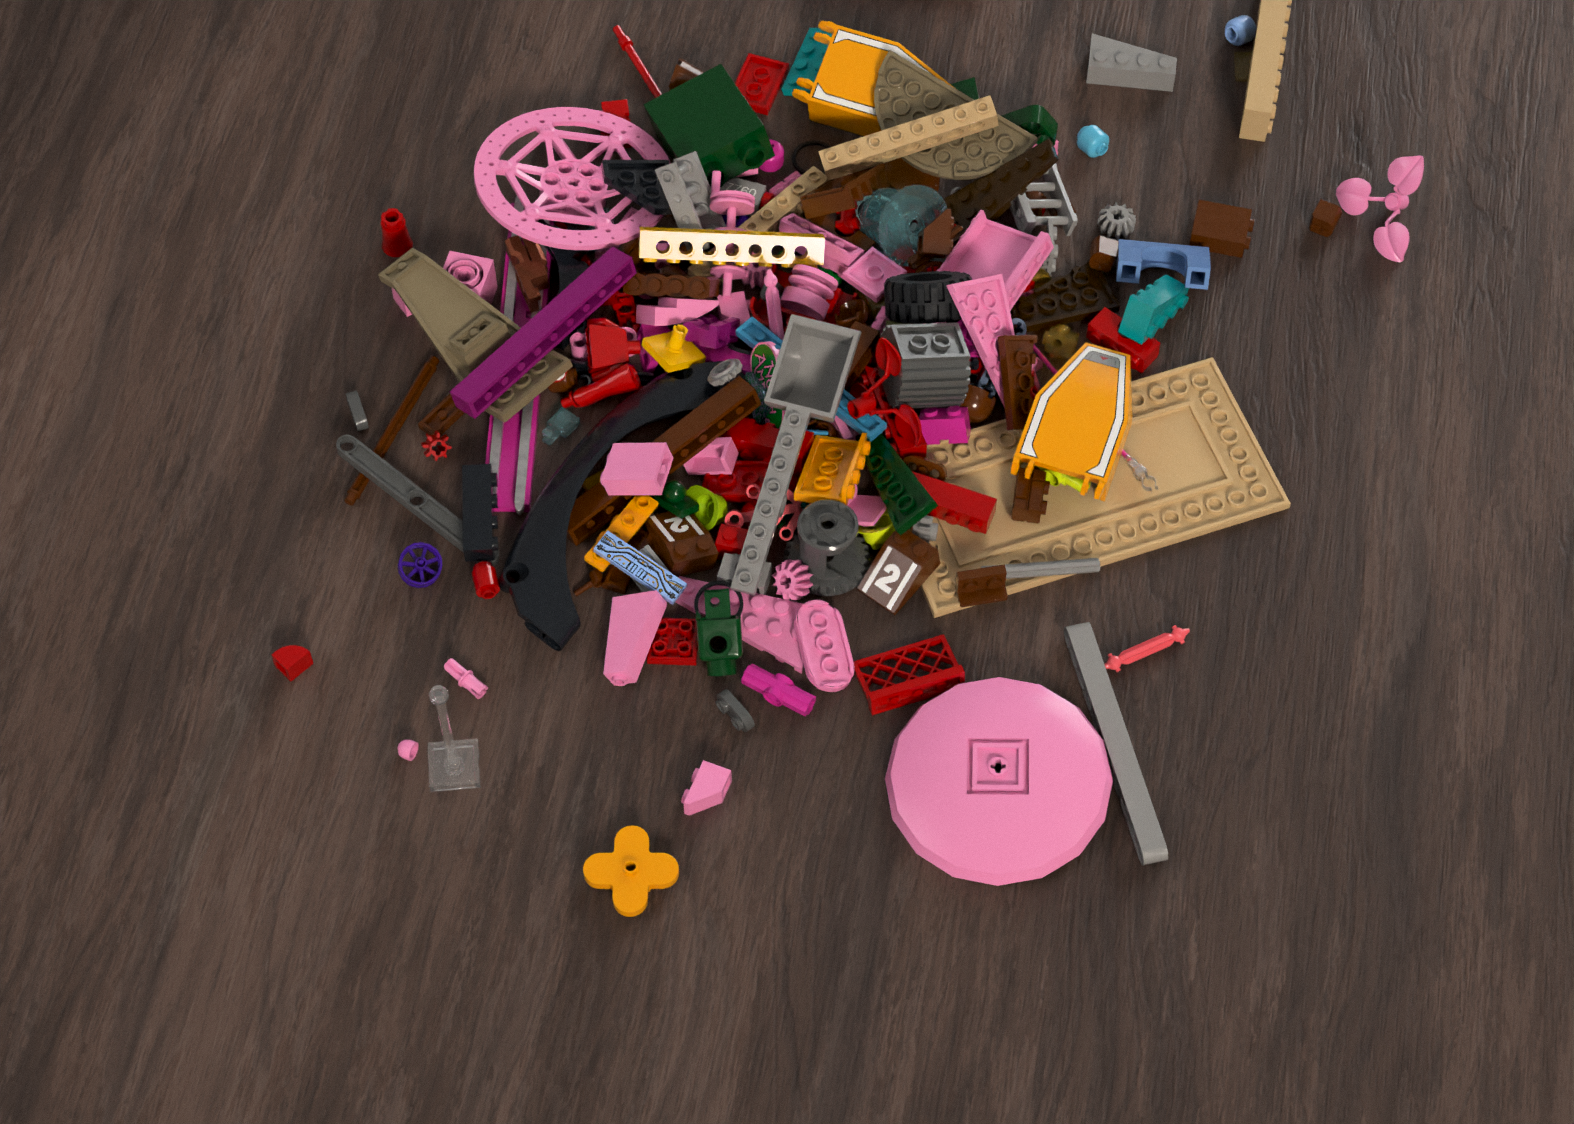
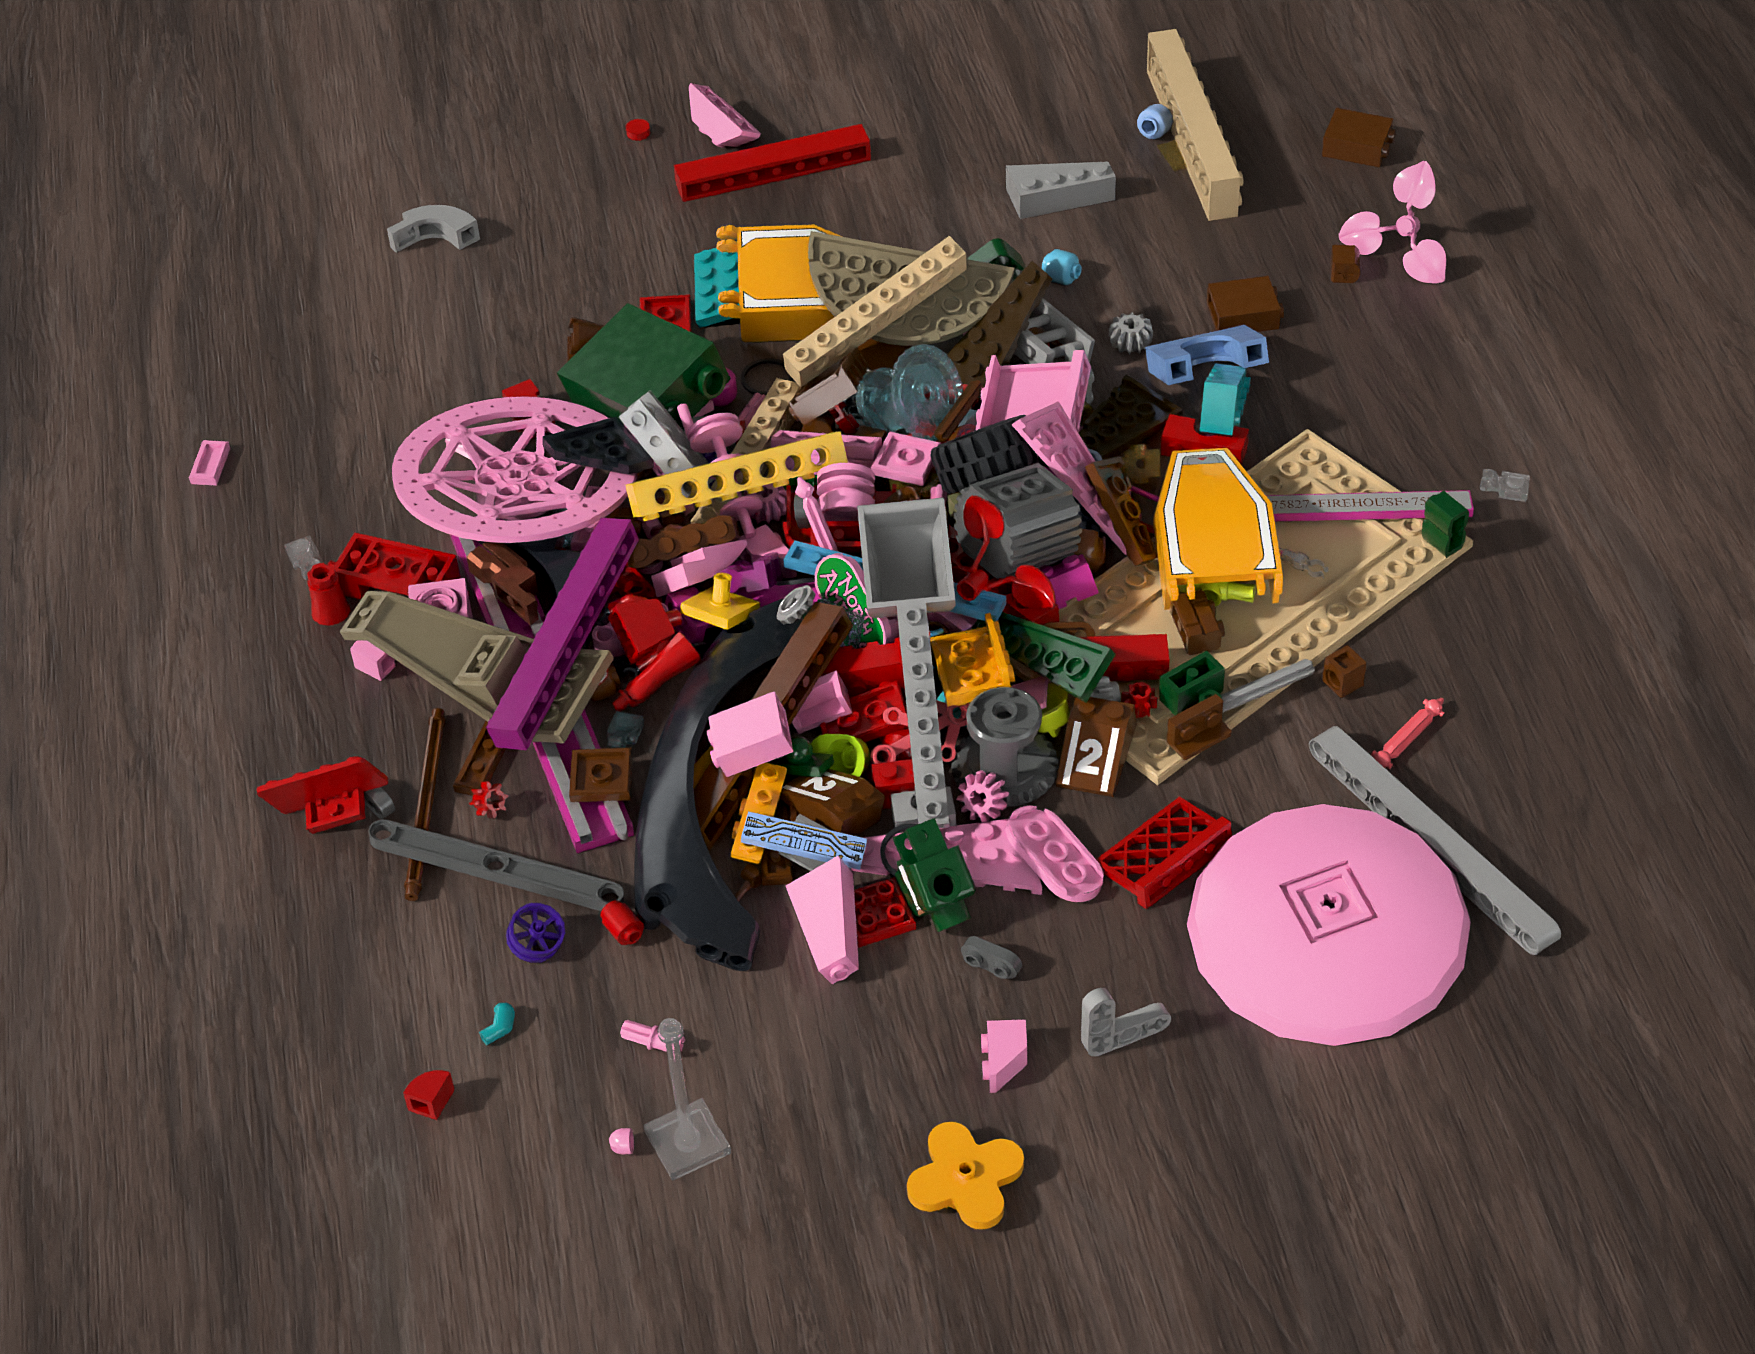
camera: 20 degrees left, 10 degrees down
(324, 401) = (328, 794): none -> red bracket
(363, 85) = (209, 462): none -> bright pink tile
(367, 625) = (501, 1025): none -> teal arm
(397, 191) = (303, 554): none -> clear plate
(436, 213) = (368, 559): none -> red brick
(478, 512) = (580, 849): black brick -> none
(522, 457) = (600, 775): none -> reddish brown tile
(627, 45) = (497, 331): red bar -> none
(778, 690) = (1028, 918): dark pink piece -> none
(783, 803) = (1105, 1033): none -> light grey beam
(935, 238) = (958, 397): reddish brown slope -> none
(950, 544) = (1142, 697): none -> red gear
(995, 547) = (1191, 683): none -> dark green brick
(1103, 253) = (1138, 364): reddish brown piece -> none
(1121, 579) = (1344, 671): none -> reddish brown brick
(1218, 443) = (1358, 505): none -> light grey tile
(1266, 484) = (1445, 523): none -> dark green brick
(1347, 466) = (1509, 484): none -> clear plate
(1402, 103) = (1358, 137): none -> reddish brown brick

